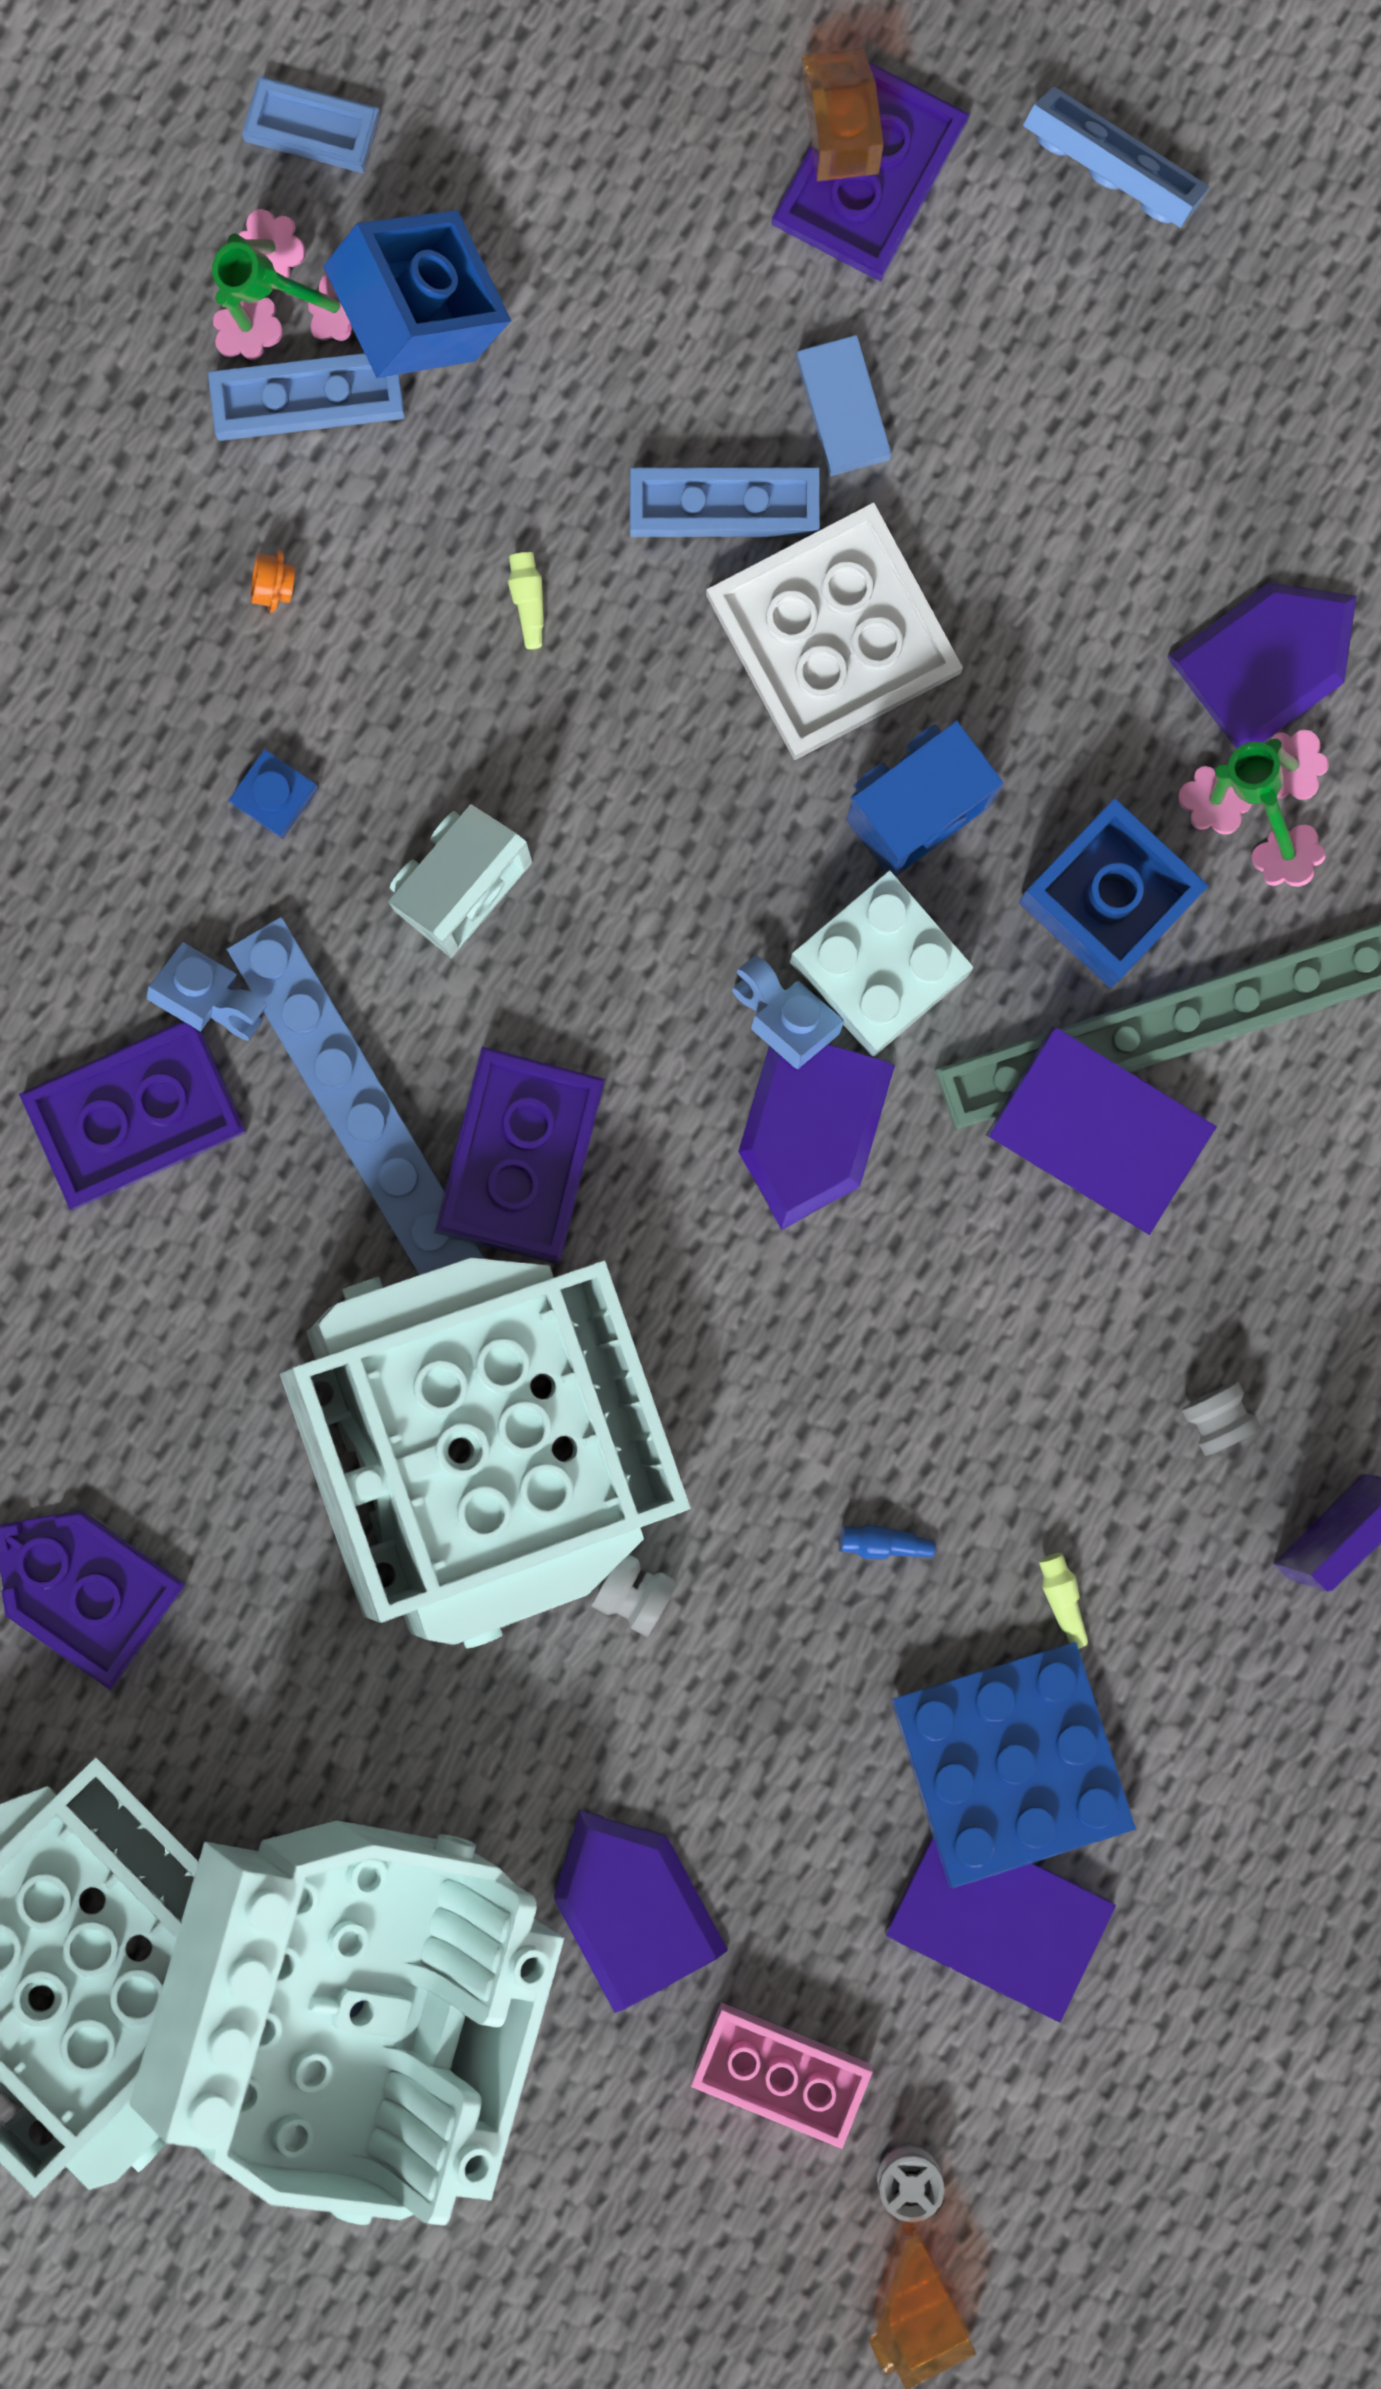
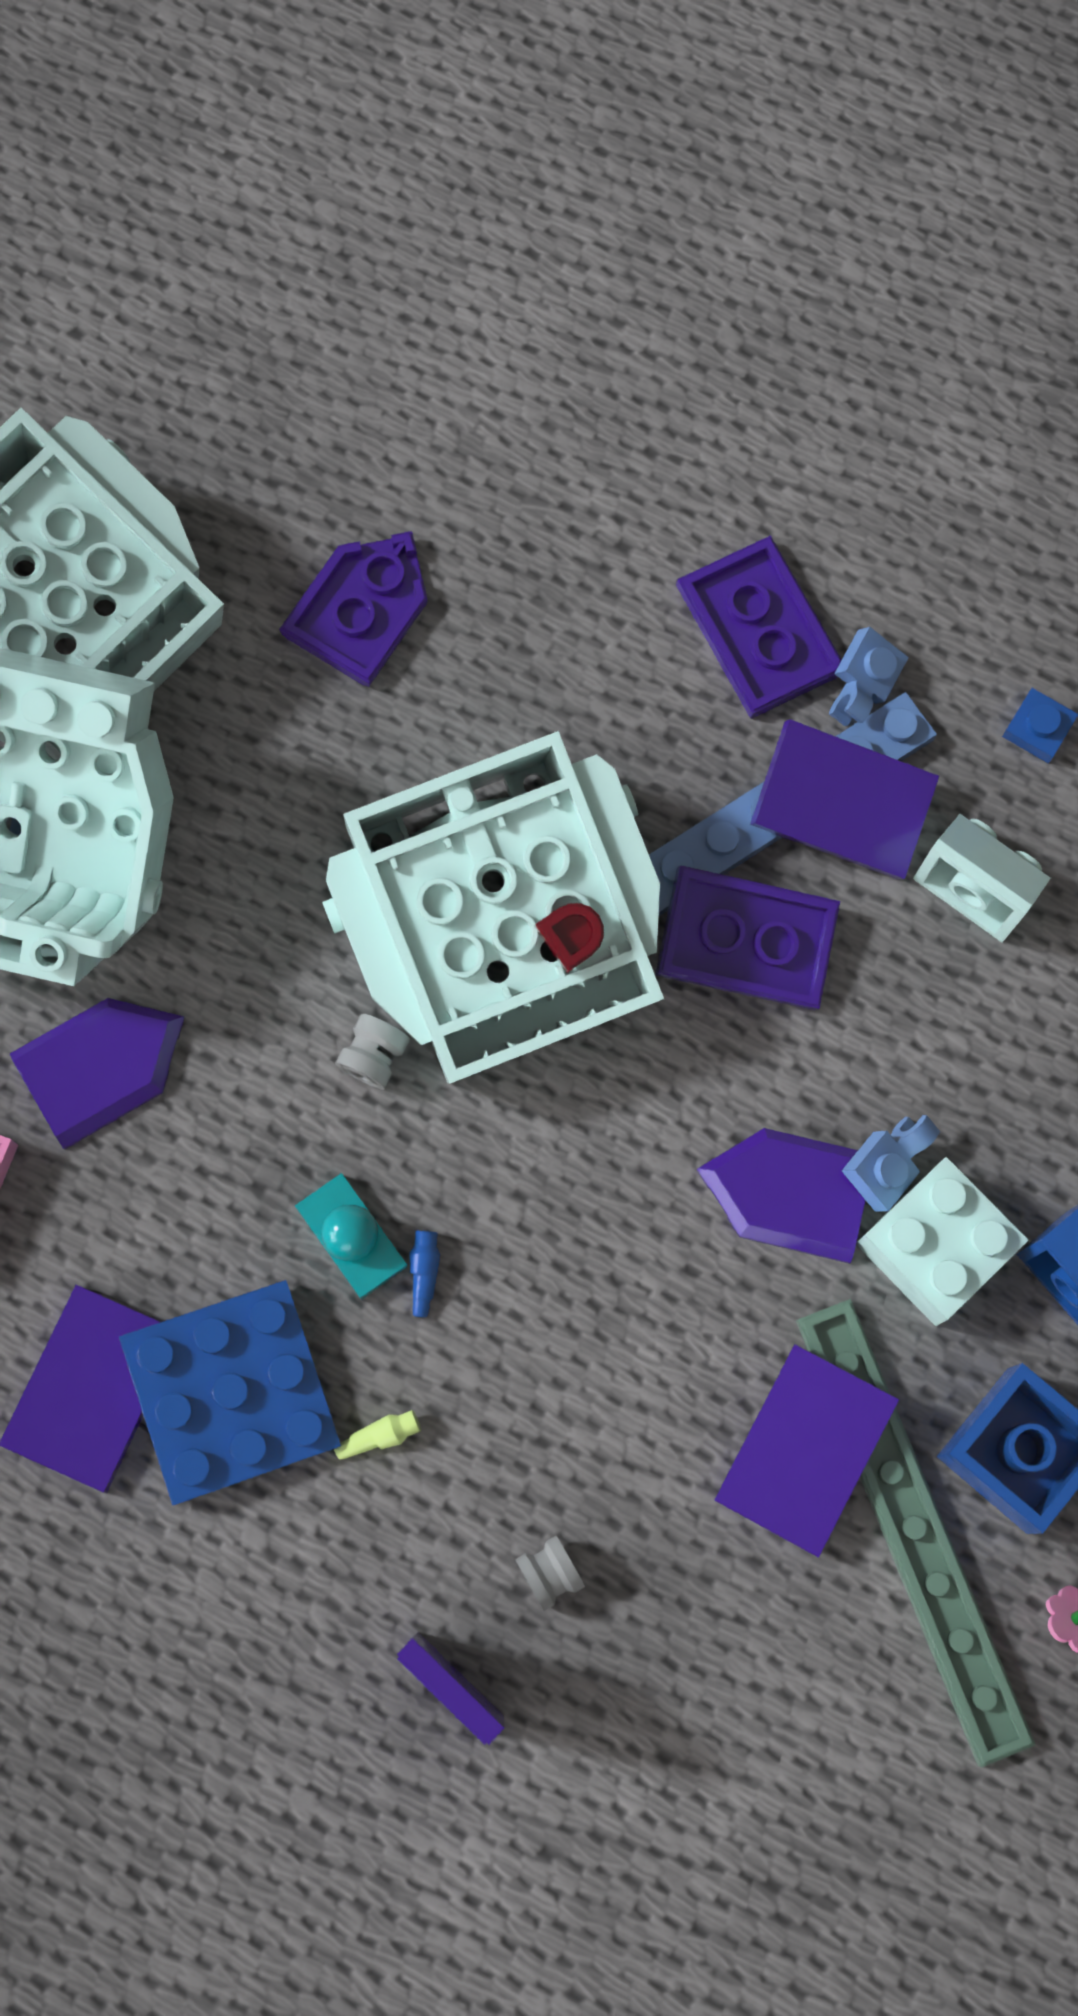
camera: 85 degrees right, 10 degrees down
(361, 1032) = (844, 799): none -> dark purple tile
(530, 1362) = (572, 933): none -> dark red tile
(842, 1624) = (351, 1236): none -> teal tile

